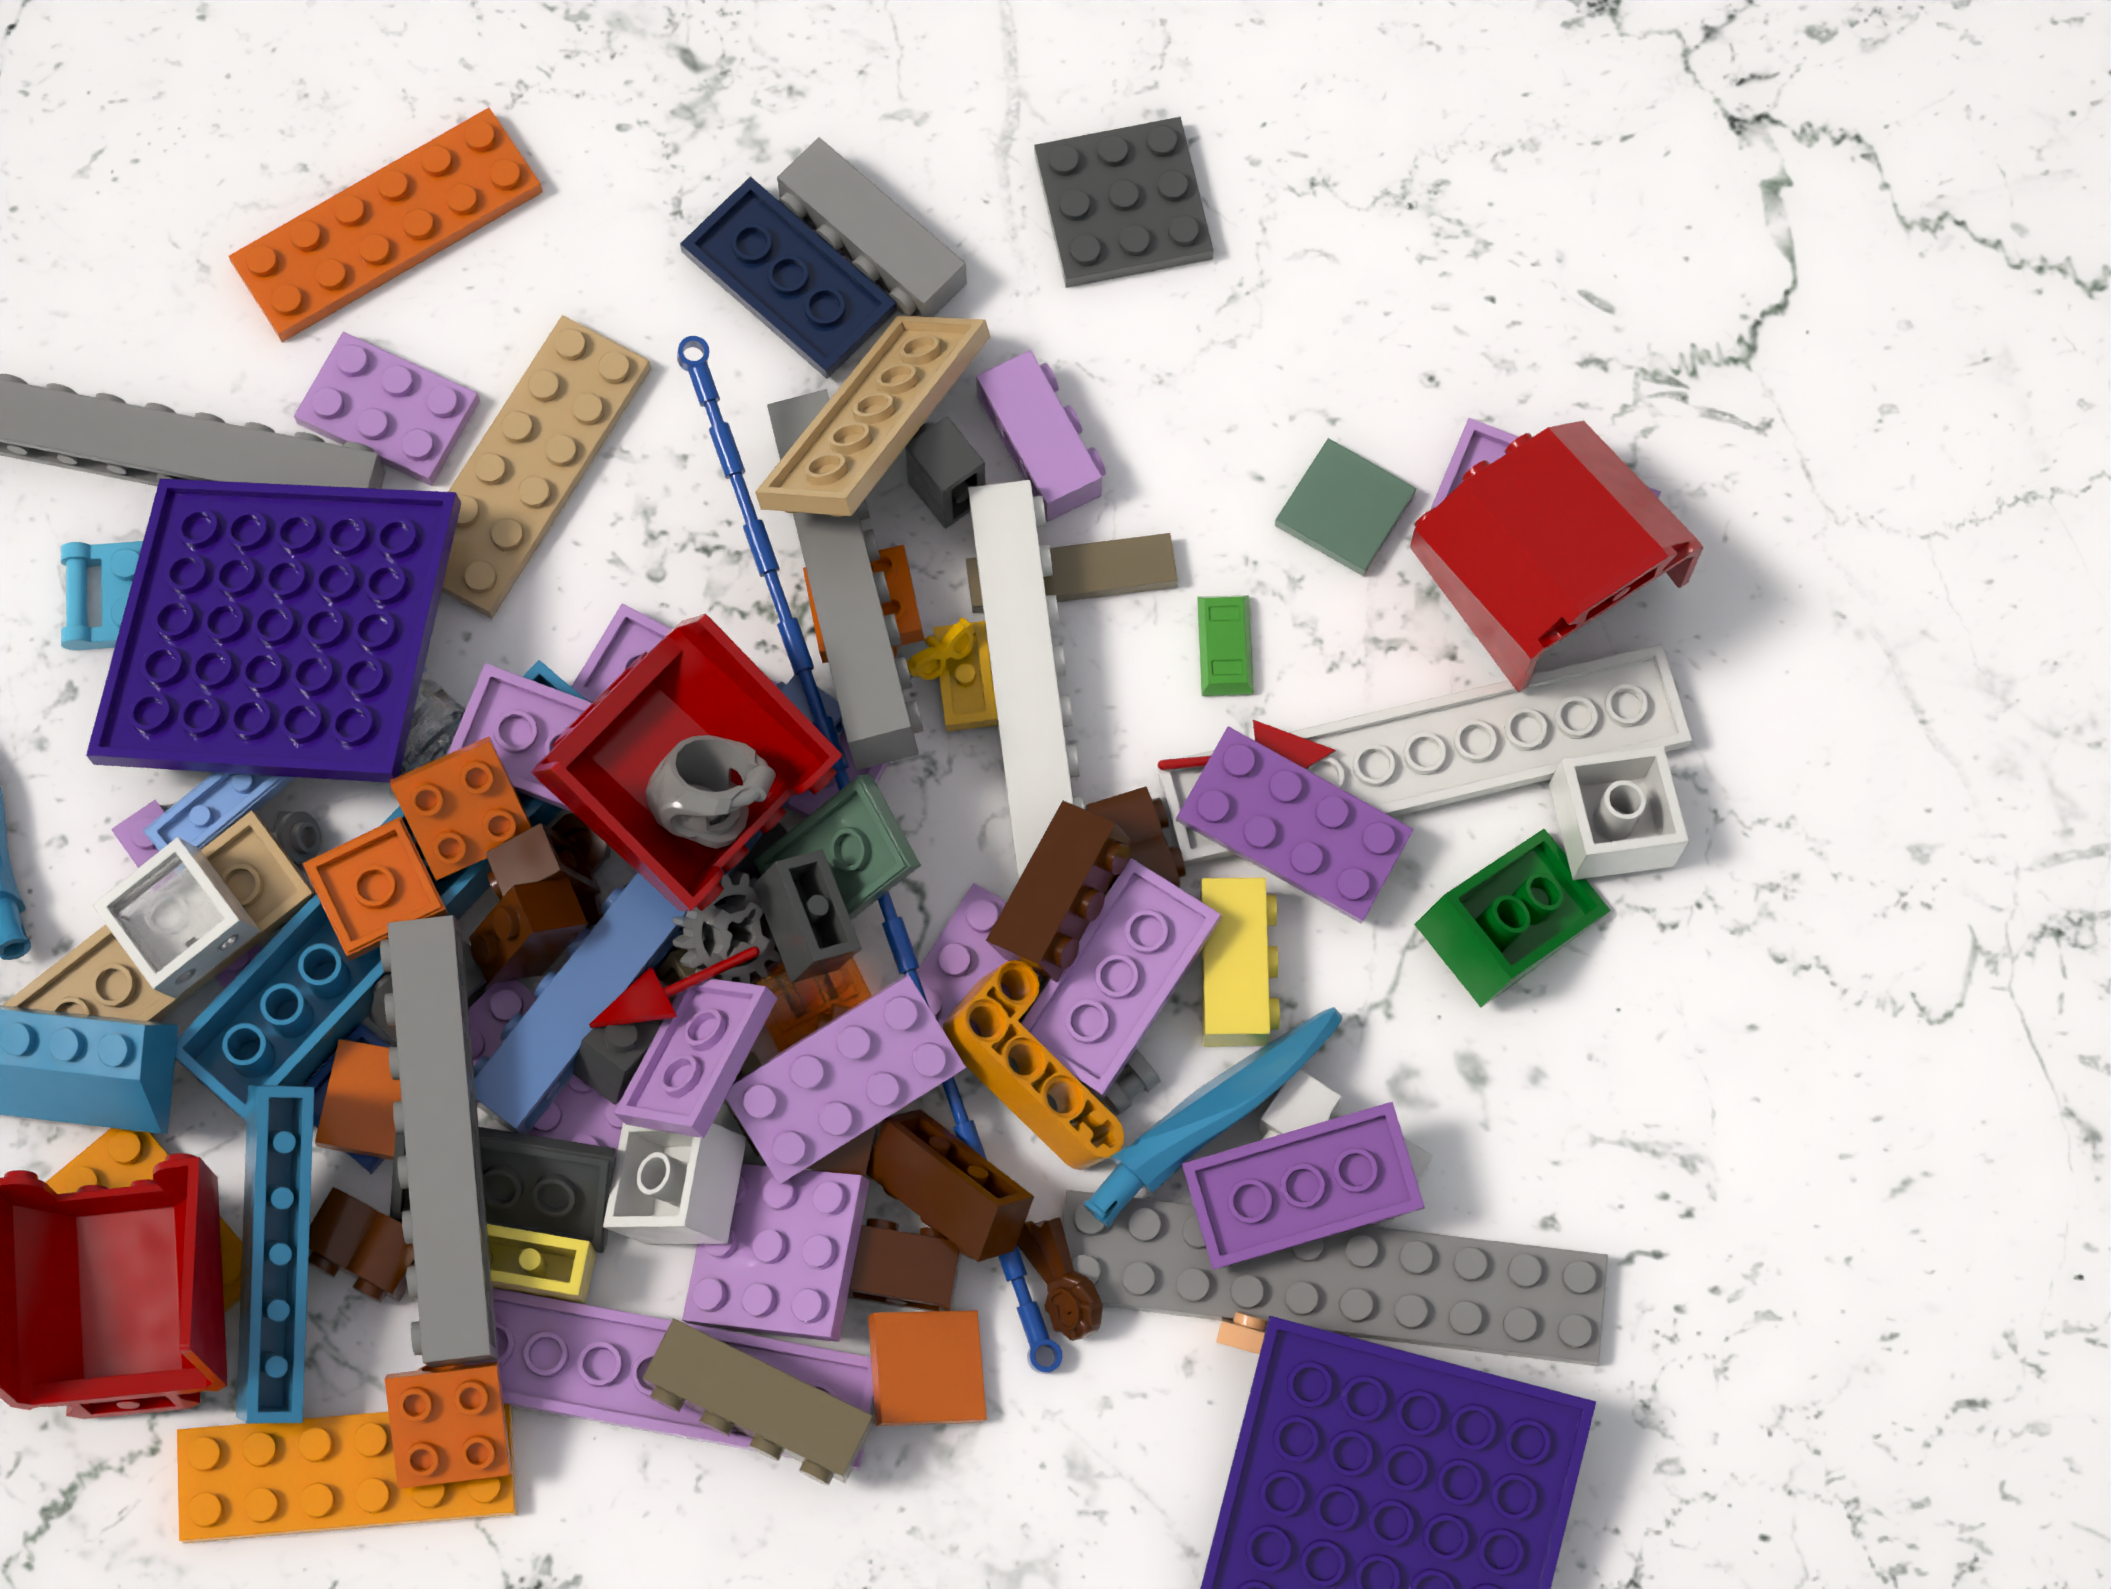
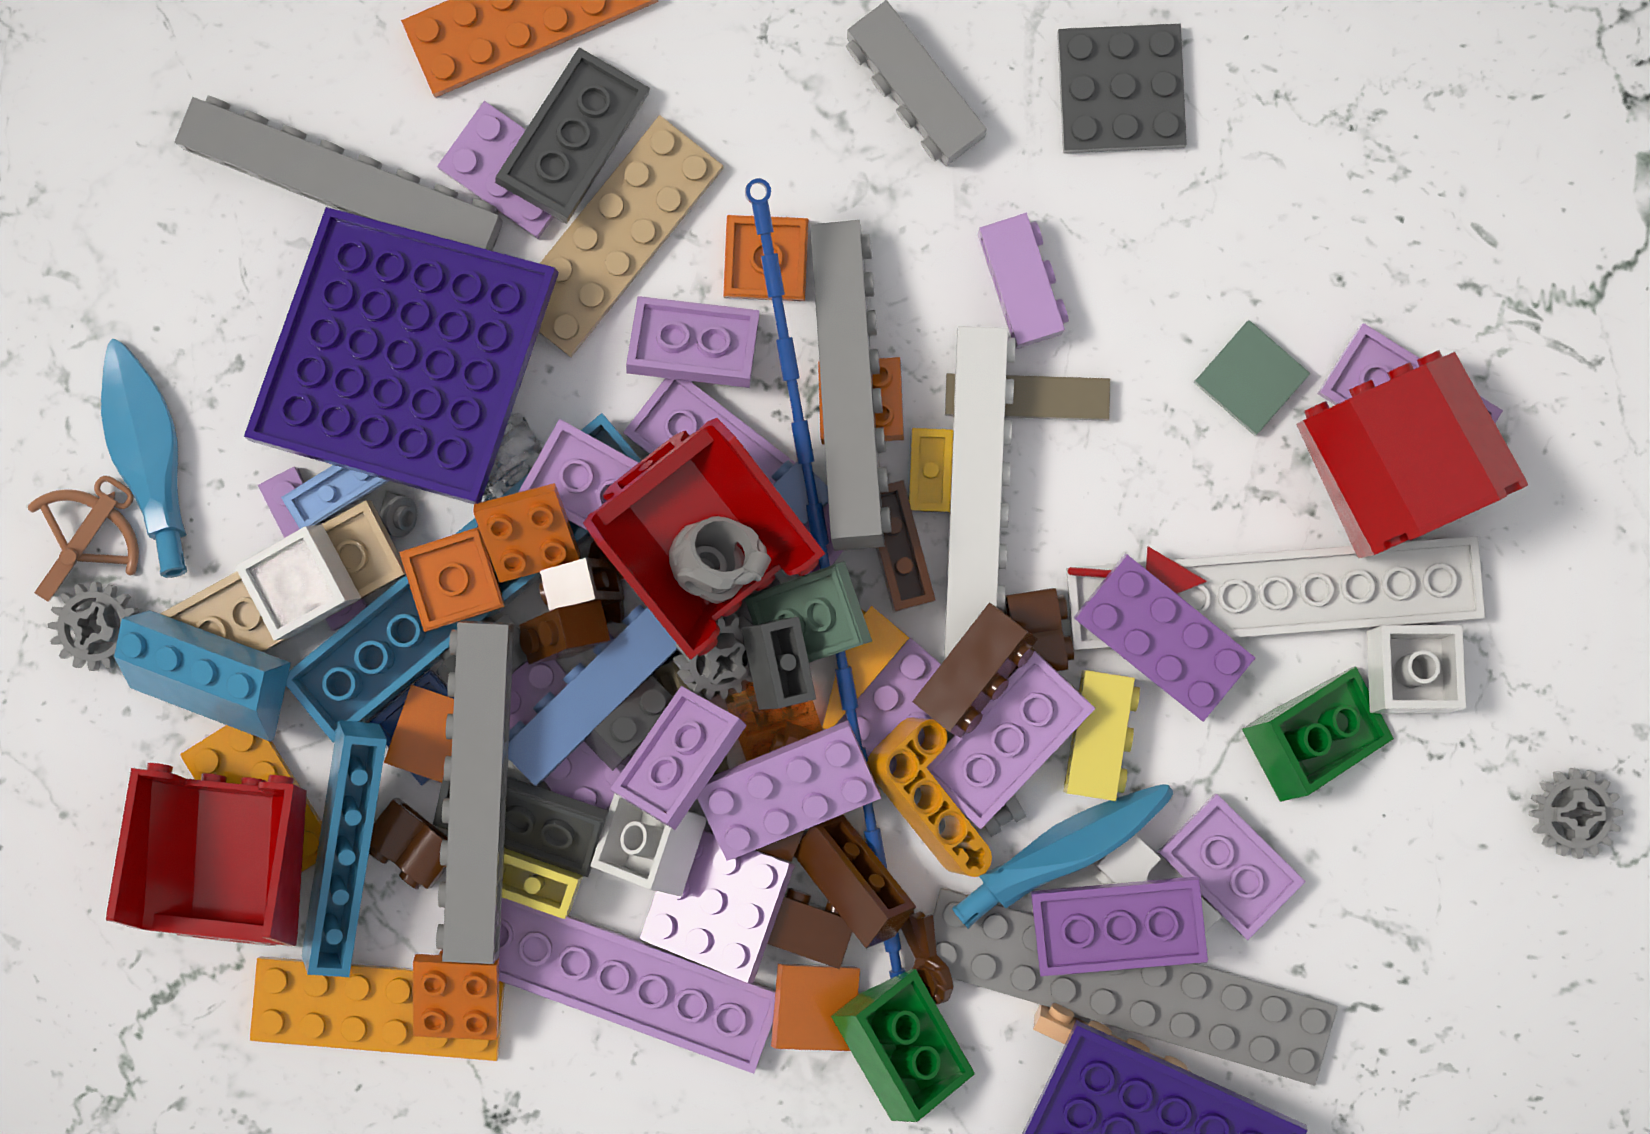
camera: 15 degrees right, 15 degrees up
(117, 573) = (285, 279): medium azure plate -> none
(457, 350) = (572, 135): none -> dark grey plate
(642, 567) = (693, 341): none -> lavender plate
(649, 1000) = (646, 704): red piece -> none
(694, 466) = (743, 254): none -> orange tile
(759, 1402) = (687, 1019): dark tan brick -> none
(788, 277) = (843, 111): dark blue plate -> none
(872, 416) = (893, 257): tan plate -> none
(926, 904) = (867, 660): none -> light orange slope
(932, 661) = (907, 459): yellow piece -> none
(942, 469) = (941, 303): dark grey brick -> none
(946, 778) = (902, 556): none -> reddish brown brick
(1050, 1395) = (903, 1046): none -> green slope
(1225, 645) = (1136, 475): bright green tile -> none
(1439, 1097) = (1234, 866): none -> lavender plate
(1855, 938) = (1576, 829): none -> light grey gear

